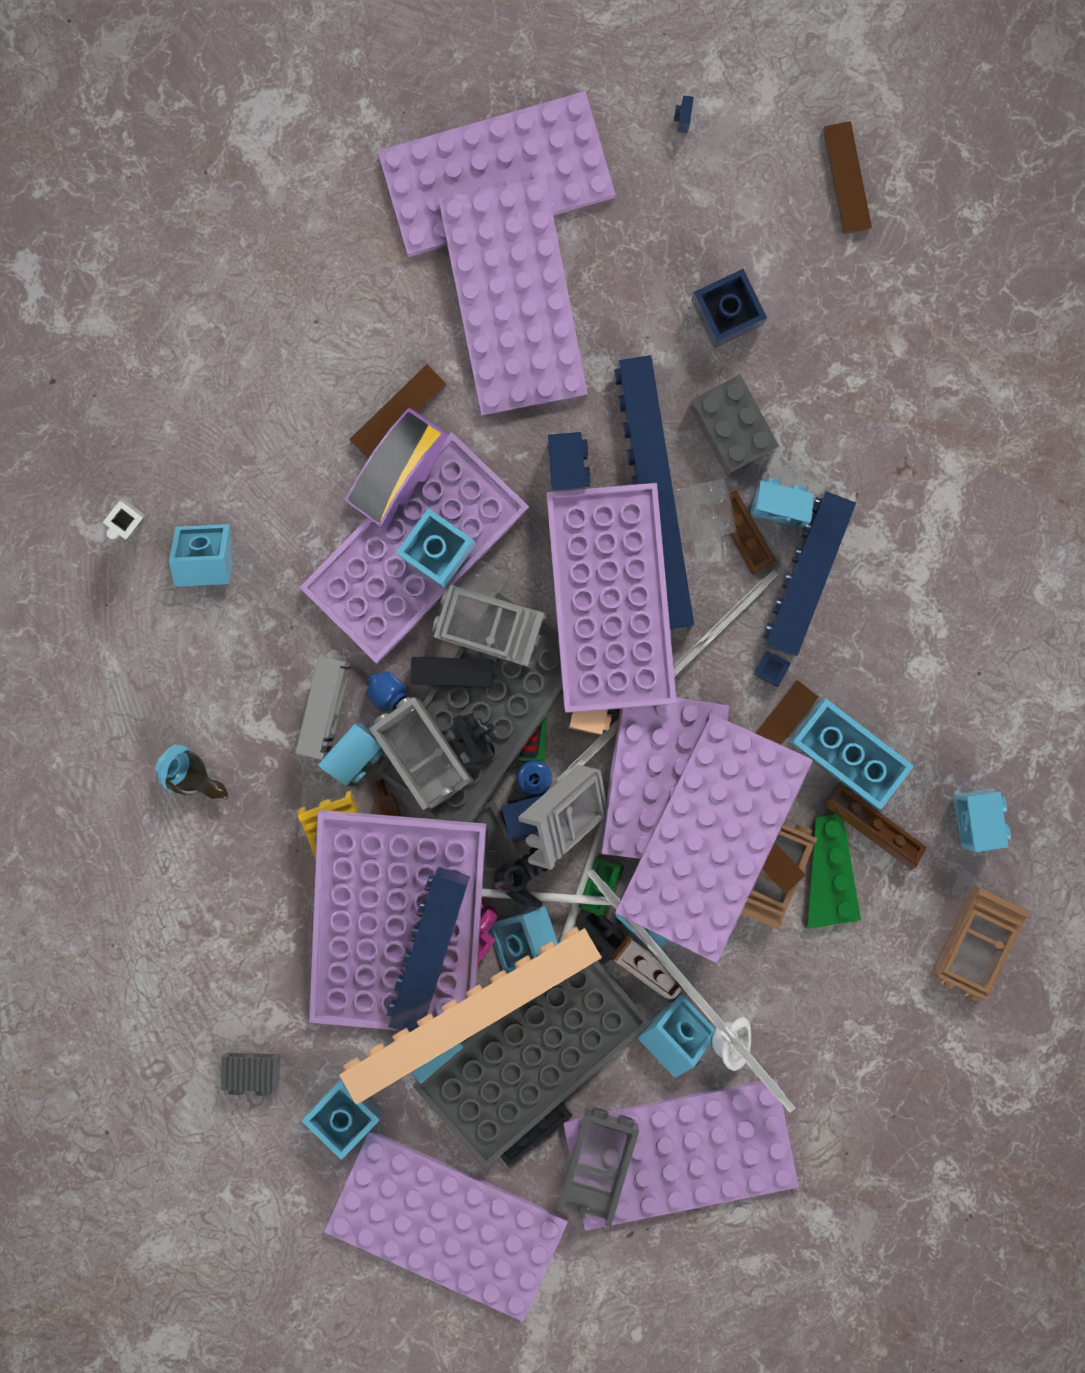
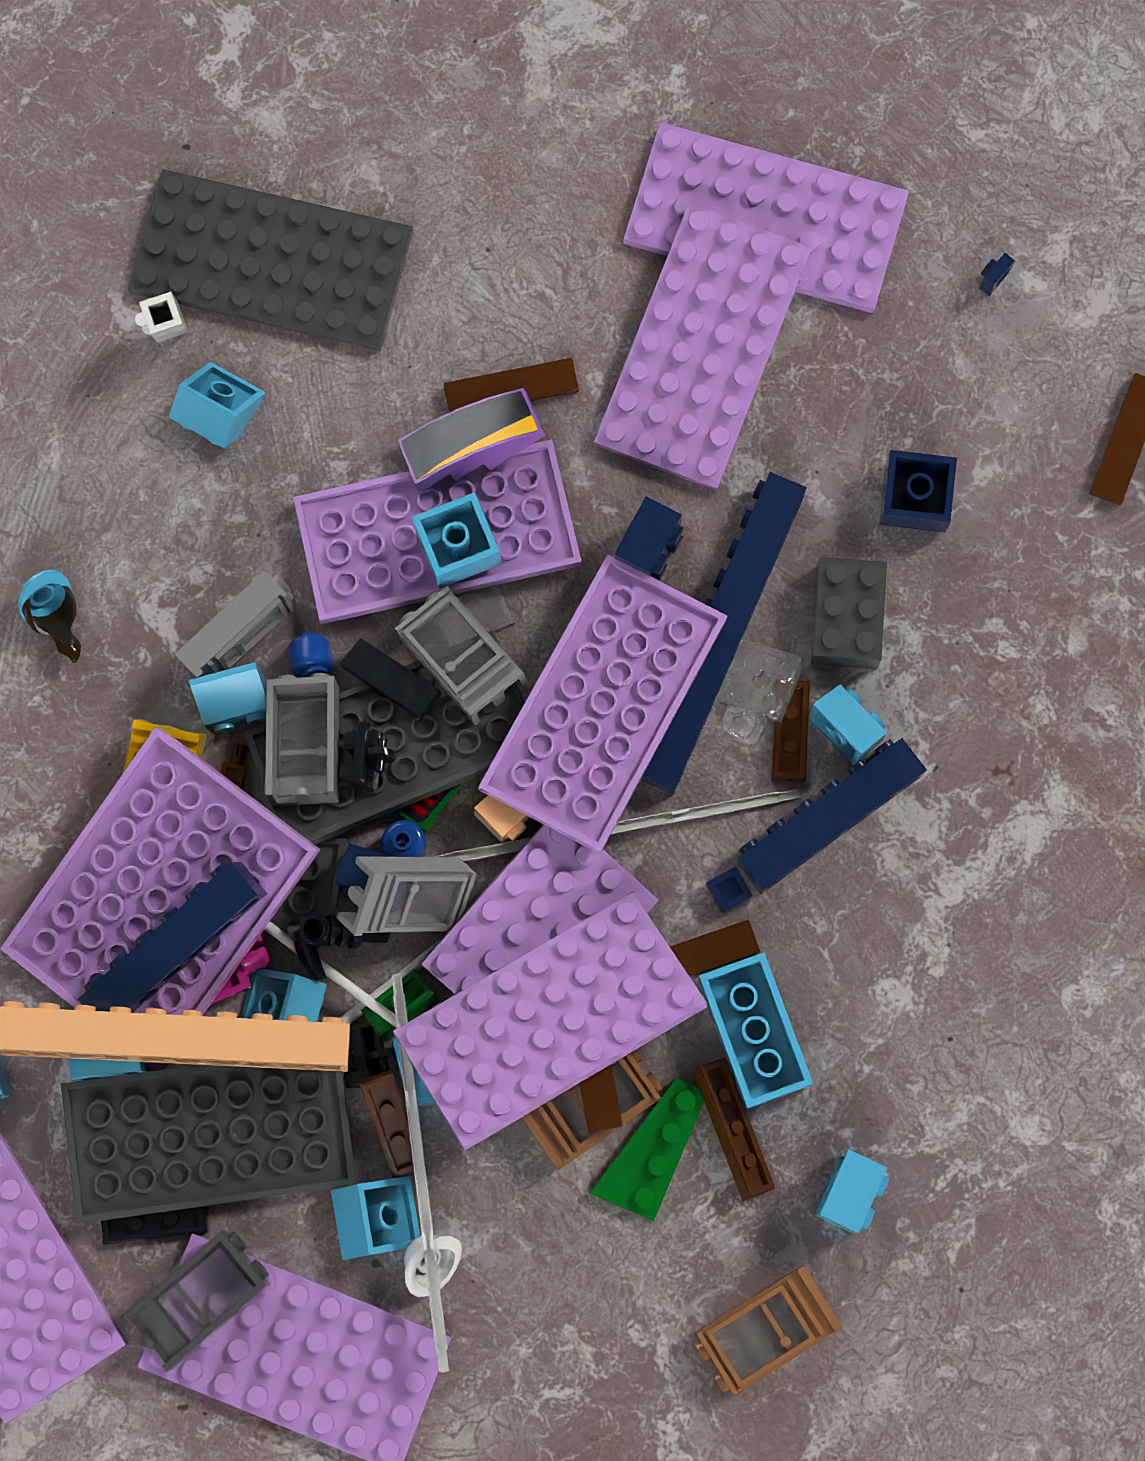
camera: 30 degrees right, 10 degrees down
(168, 426) = (271, 259): none -> dark grey plate

